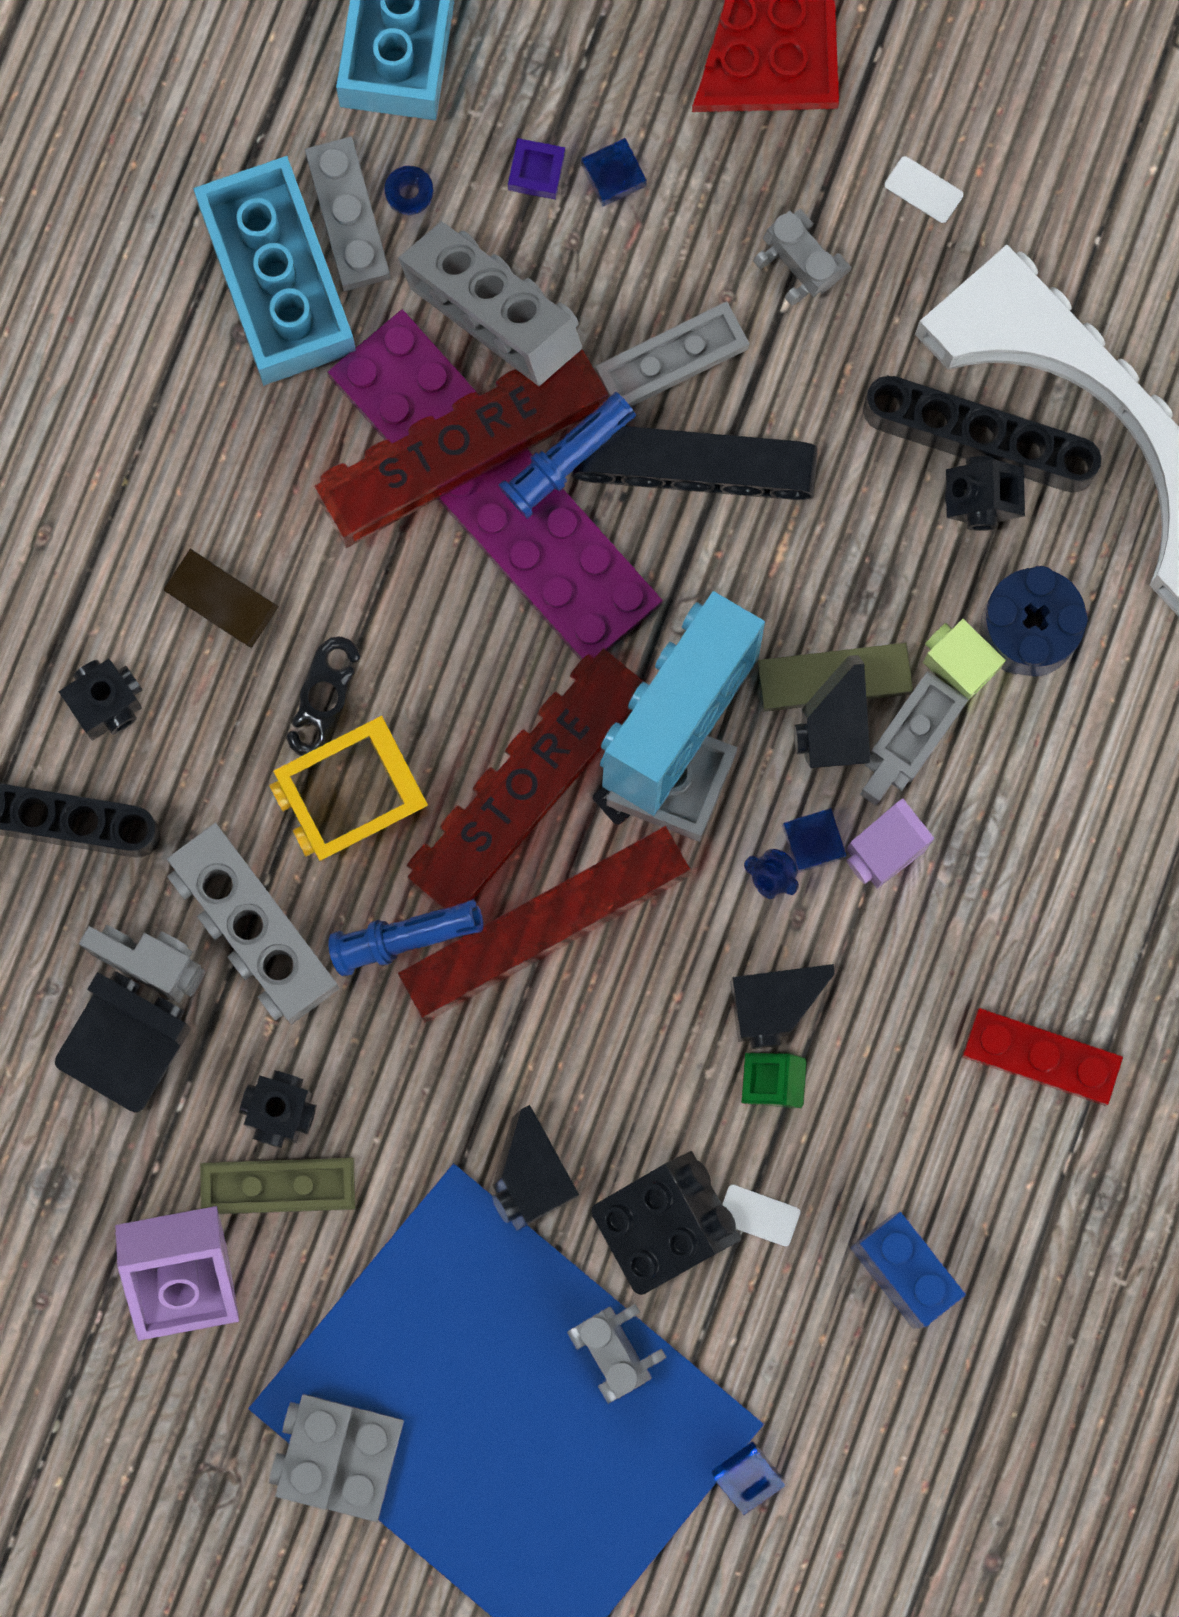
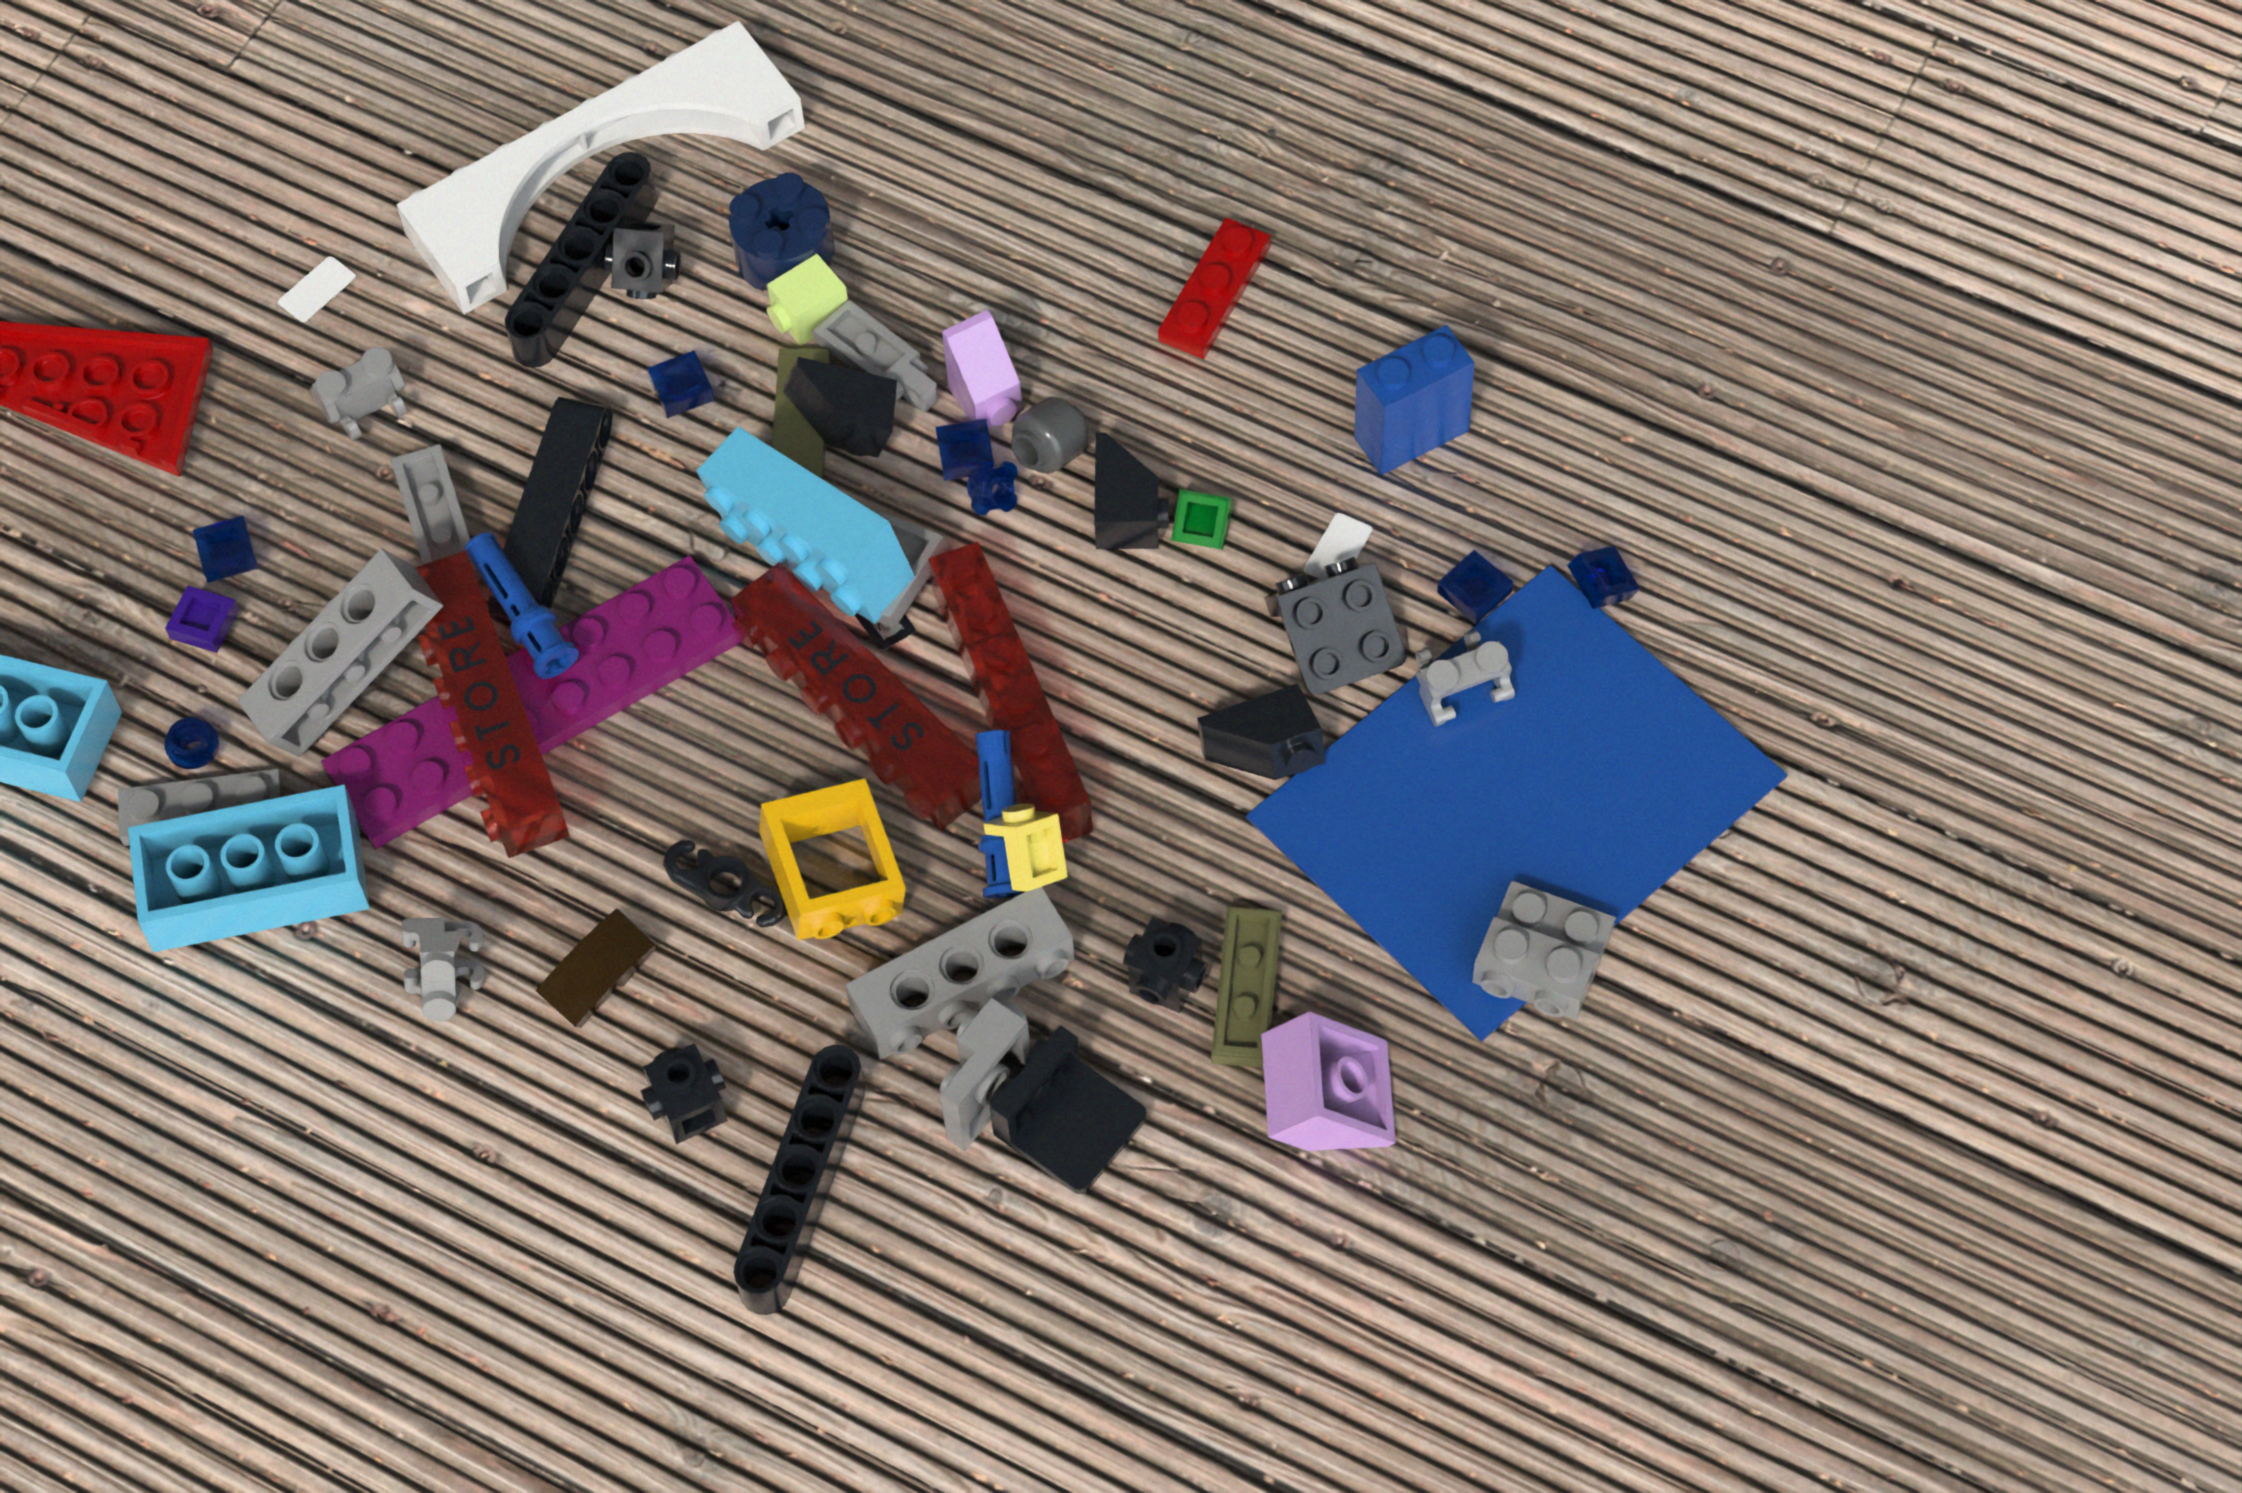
camera: 75 degrees left, 20 degrees down
(201, 455) = (438, 963): none -> light grey piece
(367, 967) = (1031, 846): none -> light yellow bracket
(723, 1353) = (1474, 587): none -> clear blue plate
(837, 919) = (1049, 435): none -> dark grey head
(852, 556) = (680, 384): none -> clear blue plate

